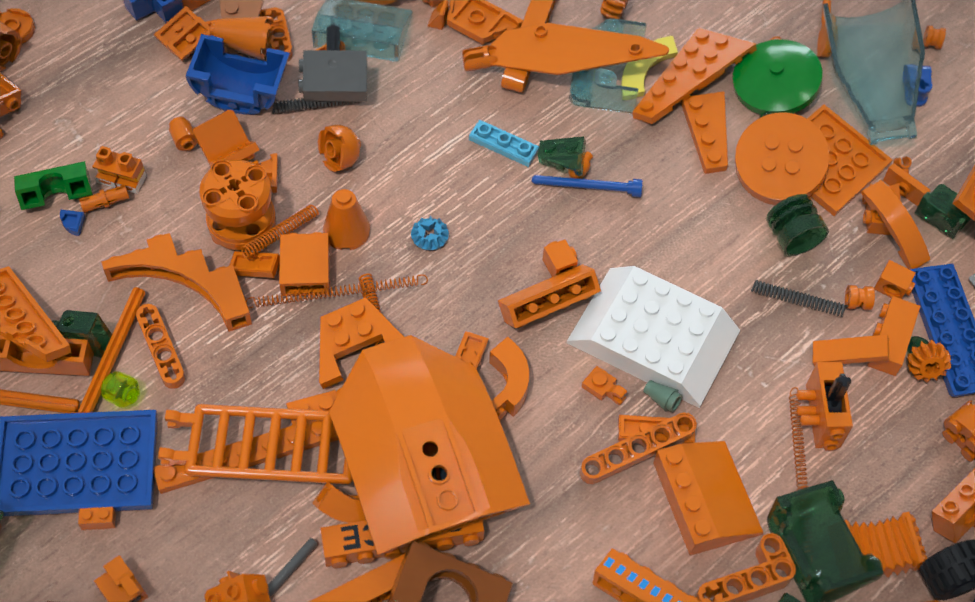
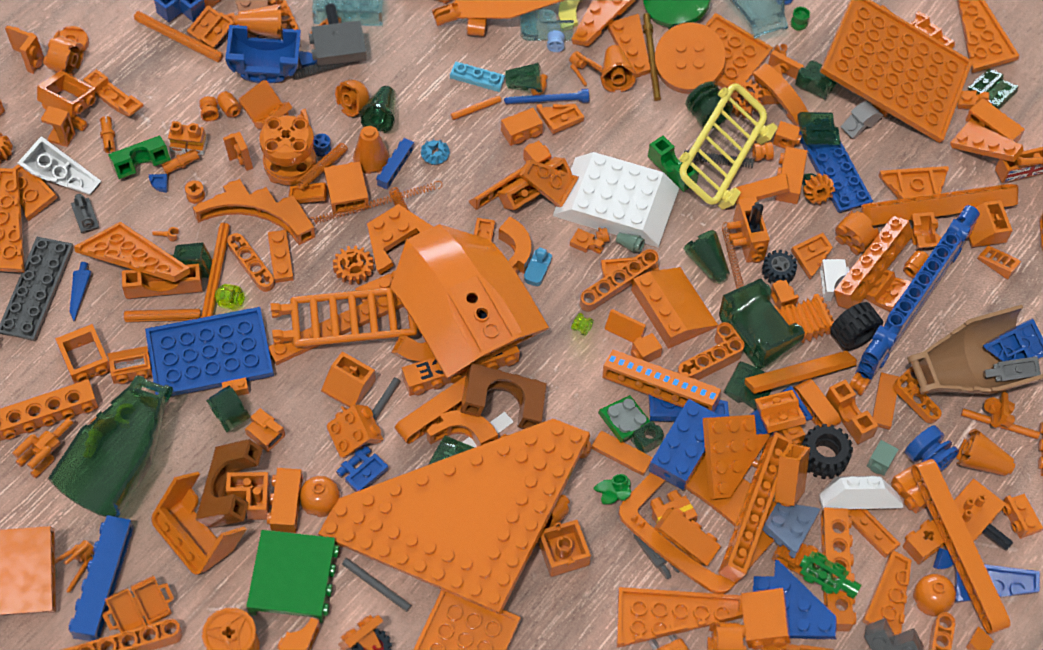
camera: 10 degrees left, 0 degrees up
(23, 150) = (107, 134): none -> orange pin
(42, 100) = (112, 95): none -> orange slope
(64, 290) = (172, 230): none -> orange hand
(77, 549) = (228, 408): none -> clear green brick
(115, 246) = (197, 196): none -> orange wheel
(142, 38) = (178, 36): none -> orange axle
(156, 136) = (209, 108): none -> orange wheel
(176, 194) = (237, 149): none -> orange bracket
(200, 344) = (280, 256): none -> orange plate
(246, 534) = (348, 380): none -> orange slope
(286, 197) = (319, 141): none -> blue wheel
(290, 370) = (353, 265): none -> orange gear
(292, 90) = (306, 59): none -> blue tile
(370, 170) = (380, 110): none -> clear green cone
(375, 241) = (395, 163): none -> blue piece
(489, 300) = (491, 192): none -> orange slope
(492, 183) = (481, 105): none -> orange bar
(533, 412) = (537, 267): none -> dark azure piece
(547, 217) = (521, 126): none -> orange brick
(567, 298) = (548, 181): none -> orange wing
(577, 503) = (582, 324): none -> clear neon green wheel
(600, 211) = (560, 116): none -> orange wing
(611, 111) = (555, 41): none -> light blue wheel
(627, 380) = (603, 235): none -> orange plate
(635, 516) = (624, 326): none -> orange slope
(638, 142) = (580, 61): none -> orange plant
(658, 552) = (646, 348): none -> orange brick
(683, 161) = (617, 70): none -> orange cone
(726, 283) = (663, 156): none -> green arch
(732, 114) = (648, 30): none -> pearl gold bar
(766, 434) = (709, 256): none -> clear green cone
(838, 214) = (745, 105): none -> orange gear
(860, 273) = (759, 134): none -> light yellow bar
(860, 504) = (783, 294): none -> orange brick
(863, 455) = (781, 261): none -> black wheel
(907, 450) = (811, 253): none -> orange wing
(931, 485) = (831, 274): none -> white arch
(933, 127) = (800, 18): none -> green wheel
(939, 278) = (818, 128): none -> clear green slope

